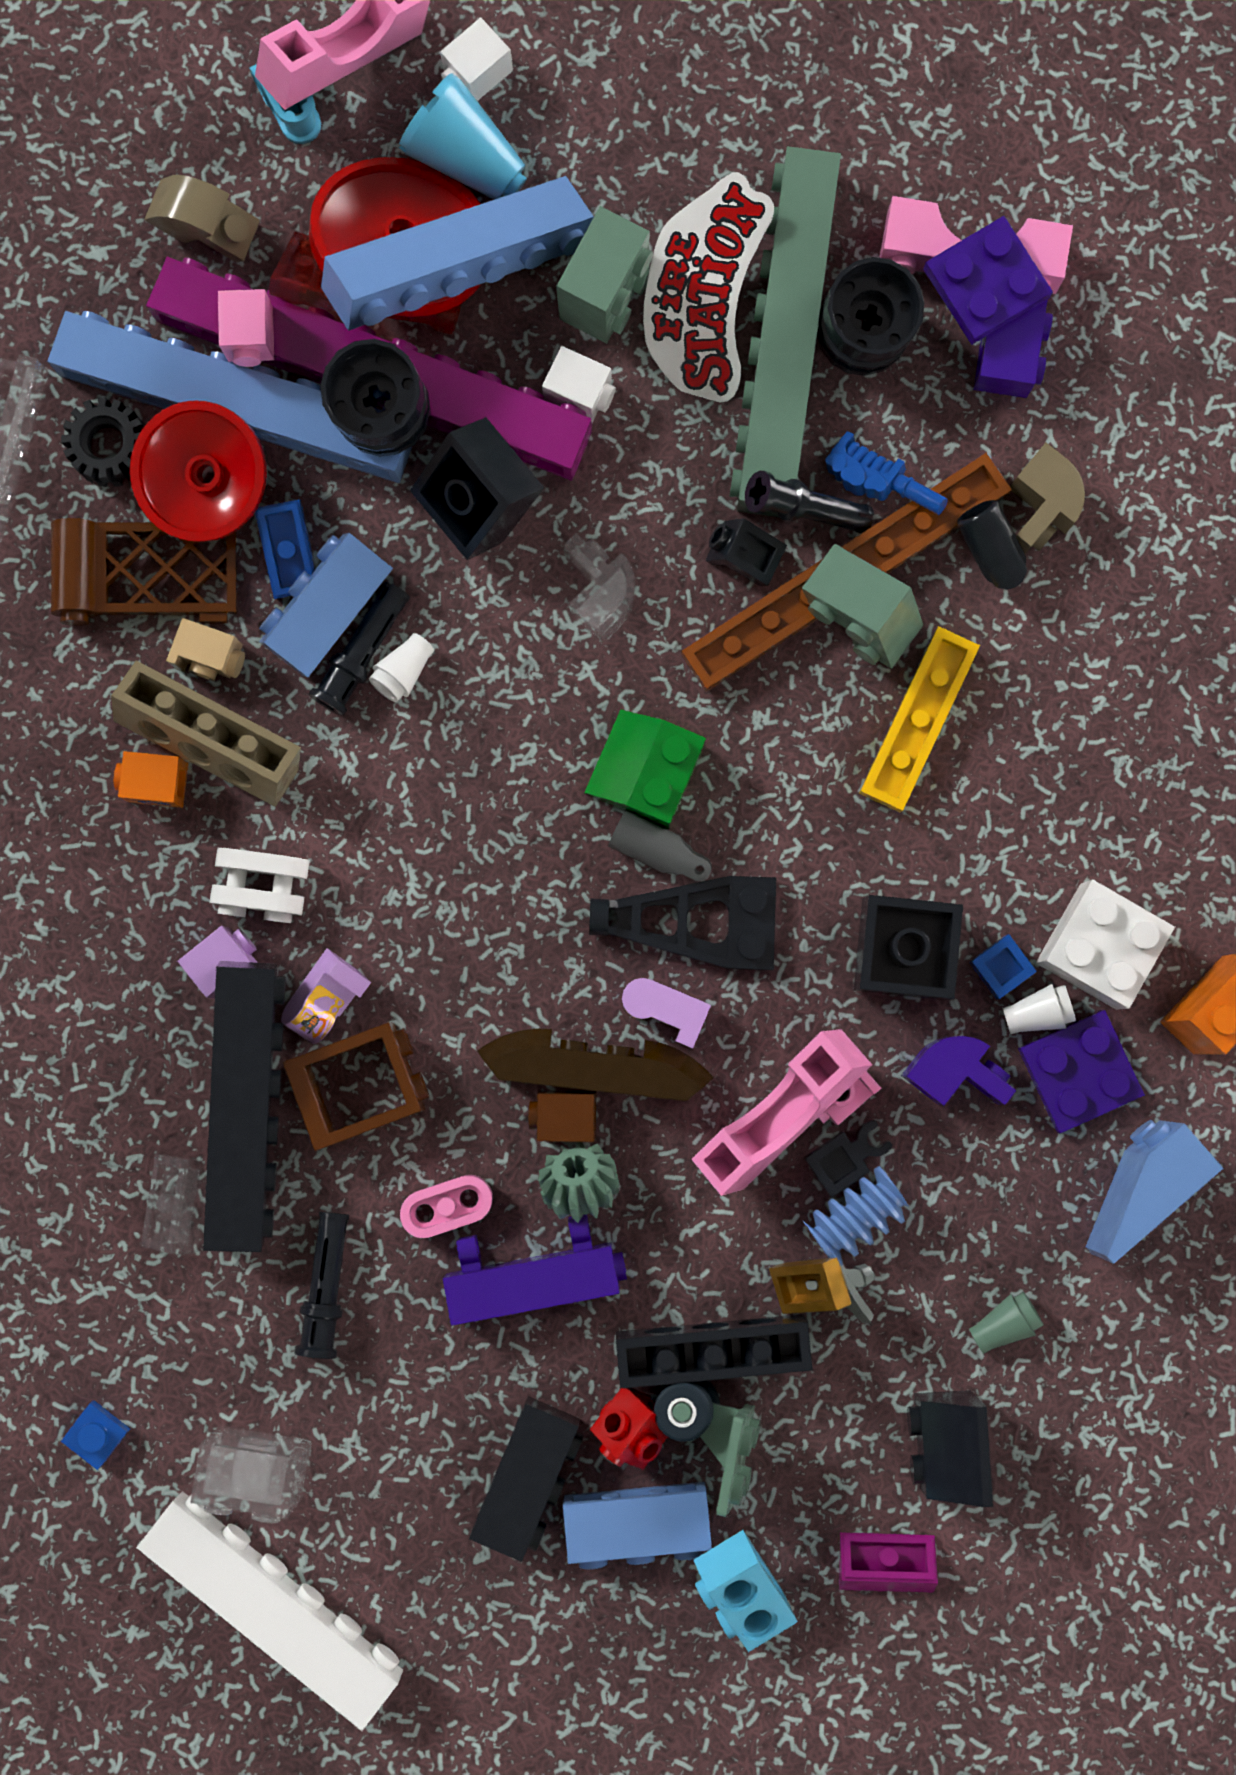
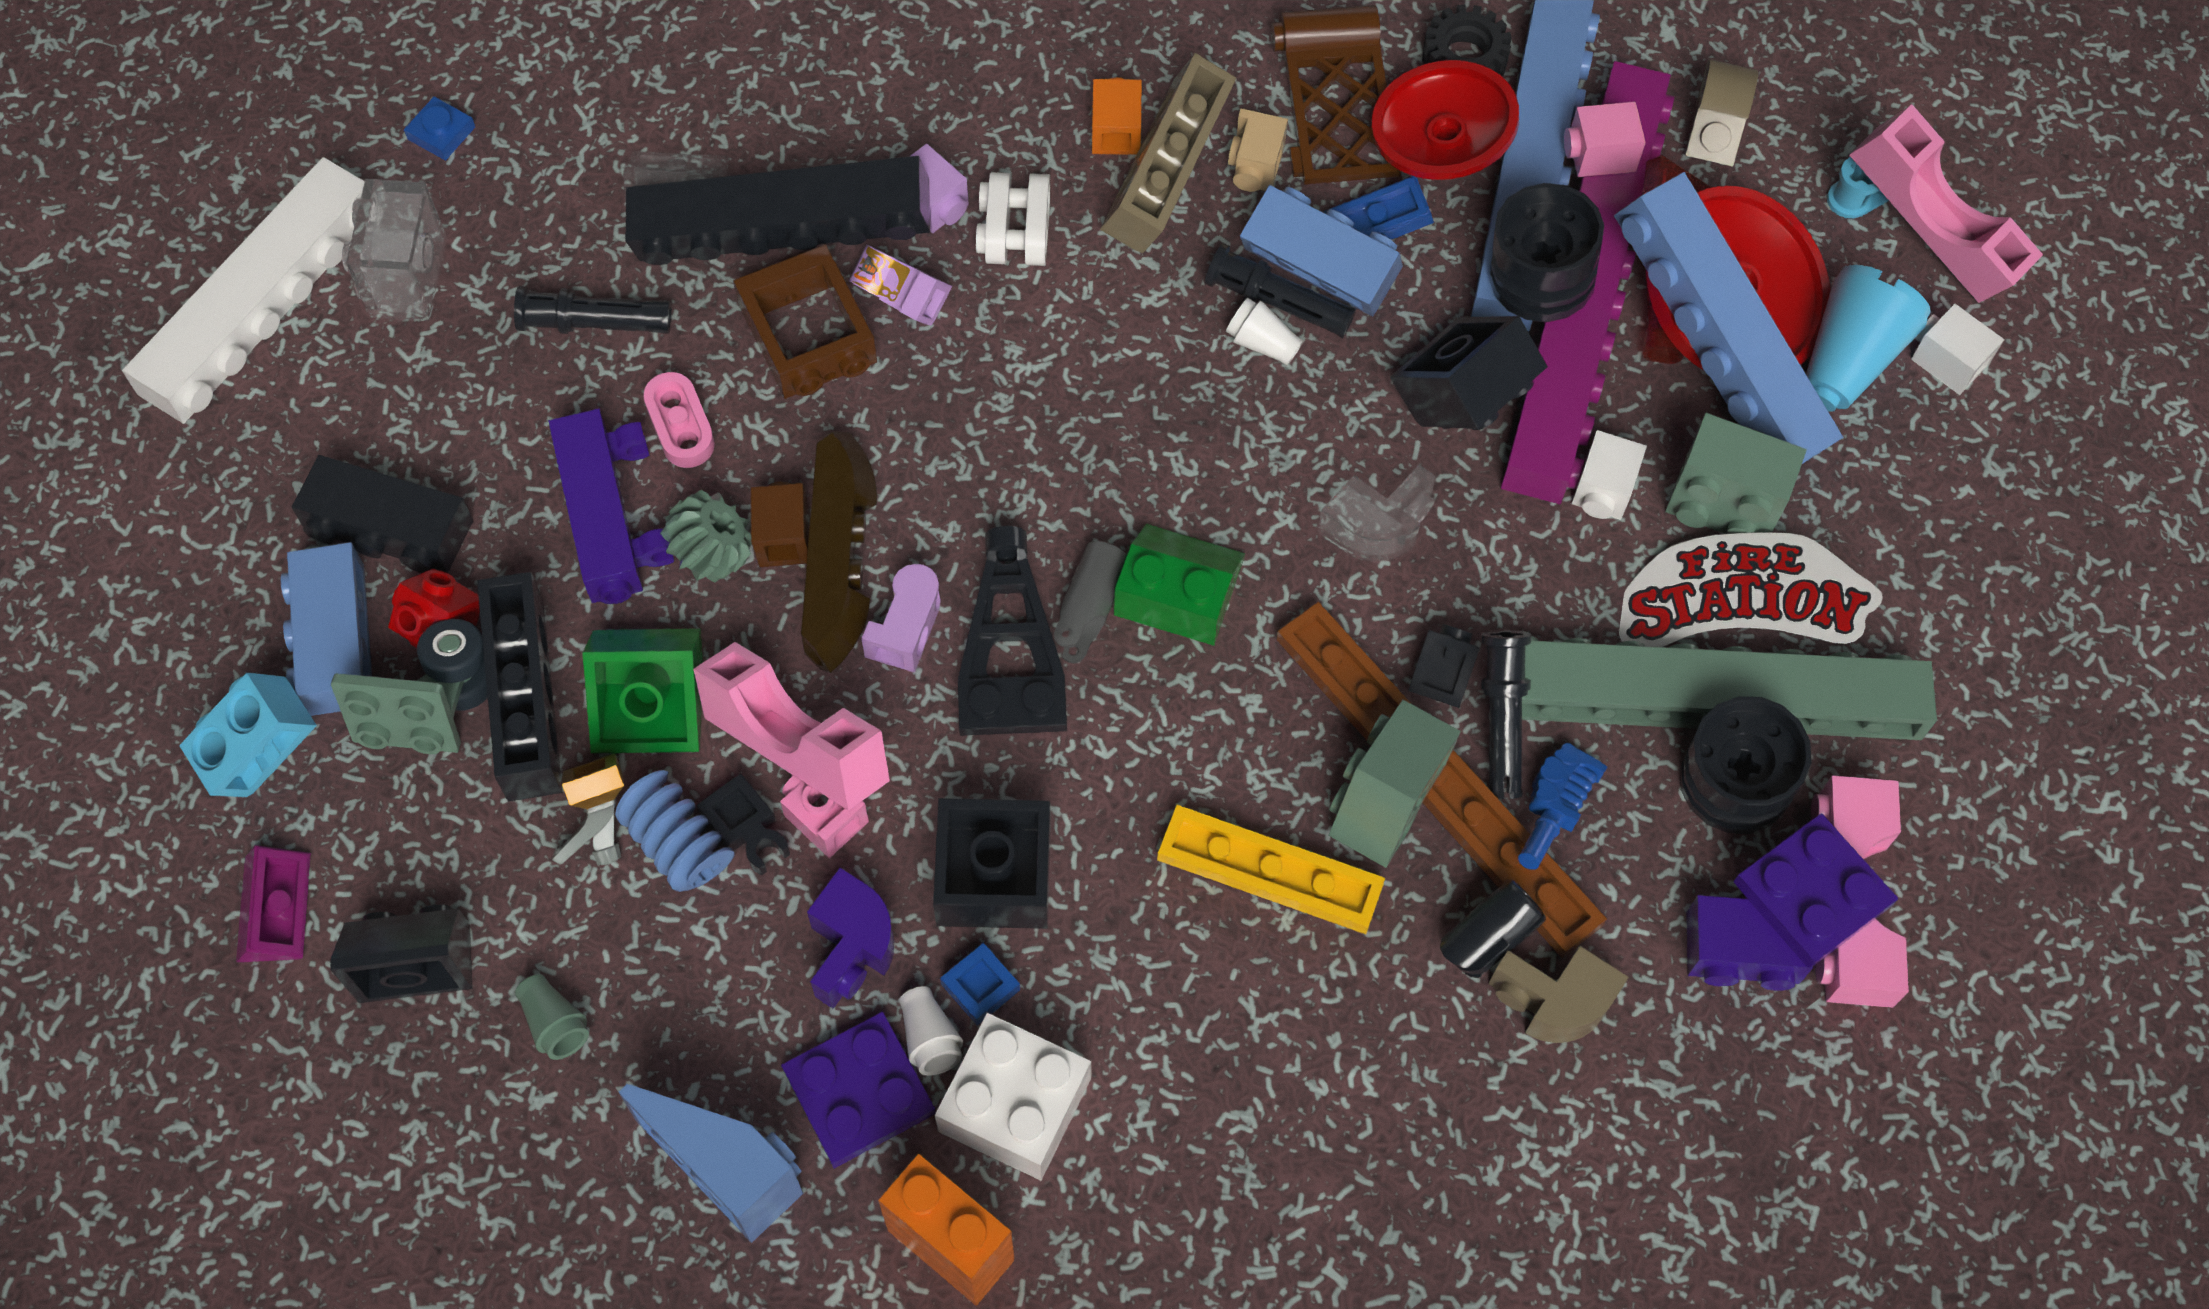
camera: 80 degrees right, 20 degrees down
(716, 1241) = (643, 690): none -> green slope

